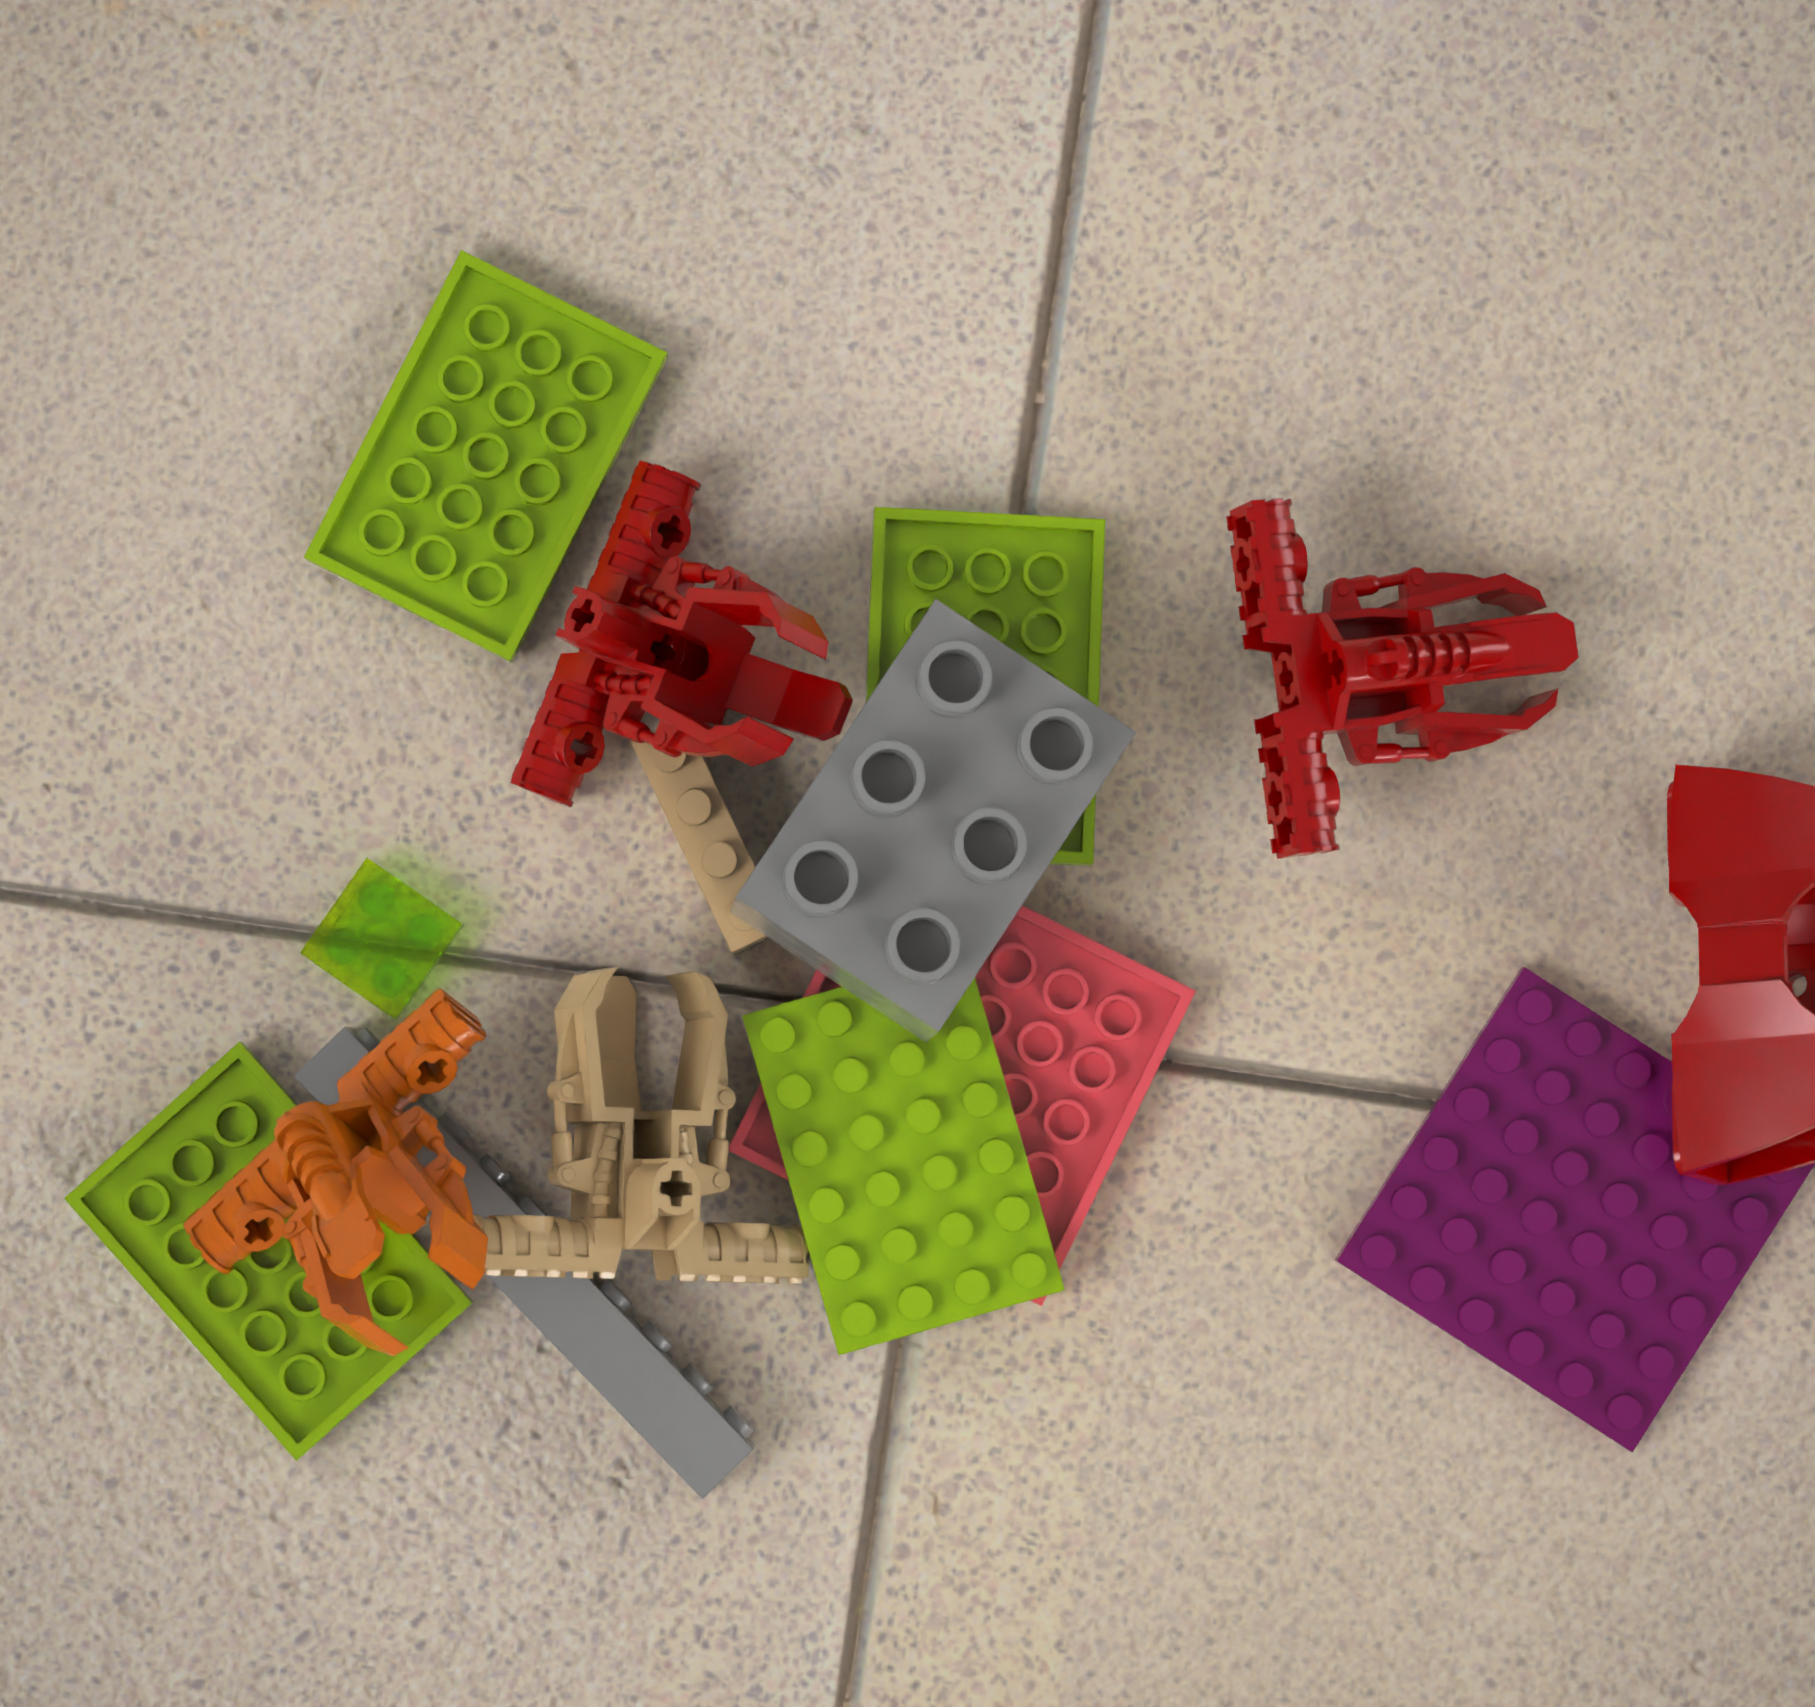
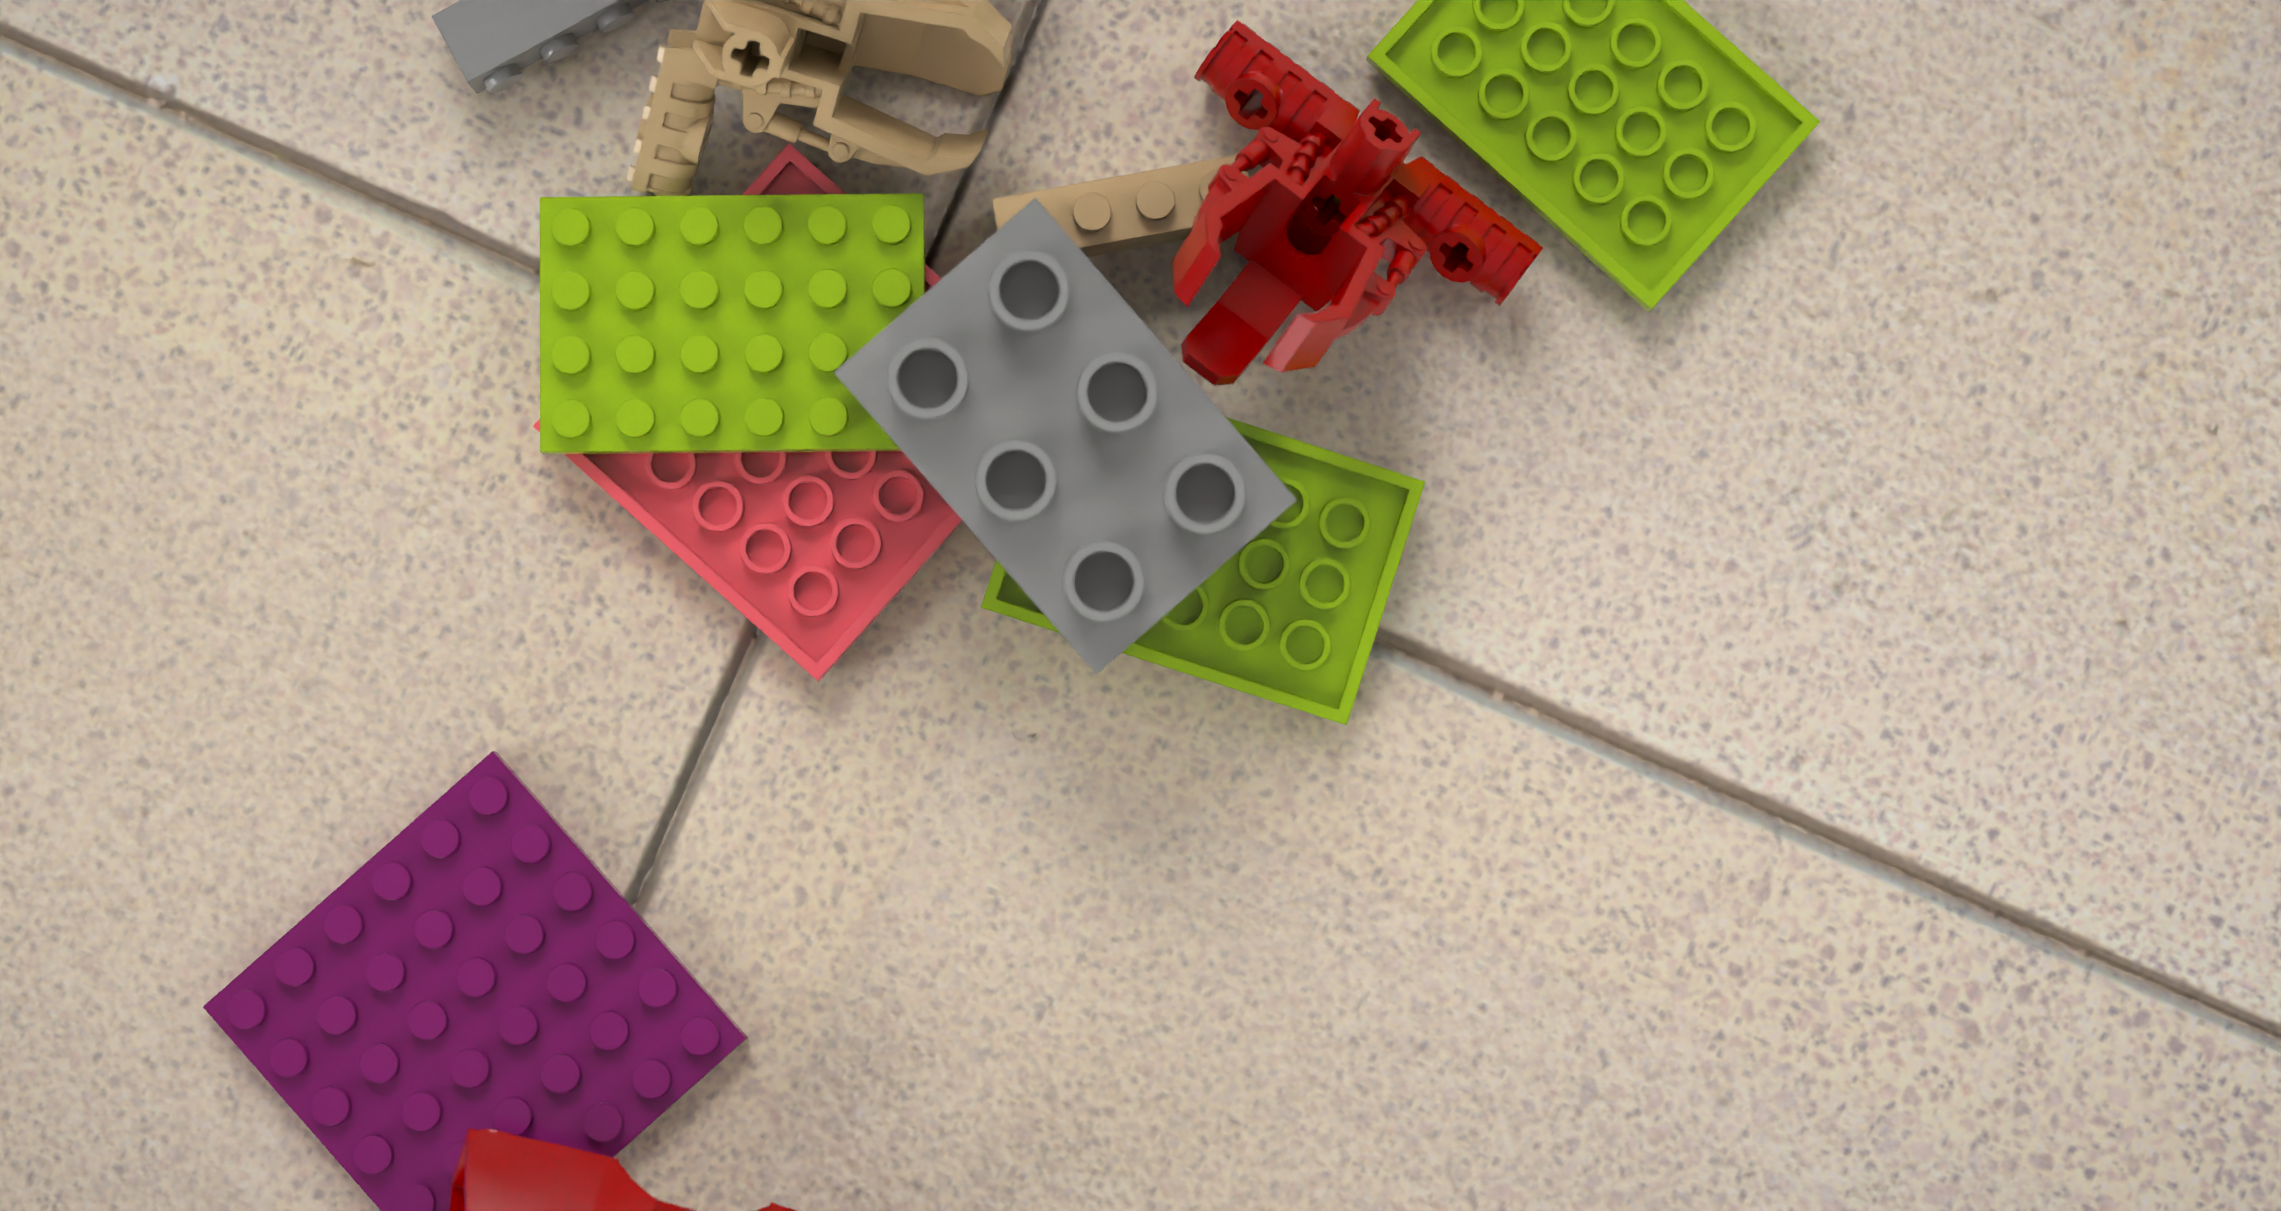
camera: 105 degrees right, 0 degrees up
(1373, 667) = (1102, 959): red piece -> none

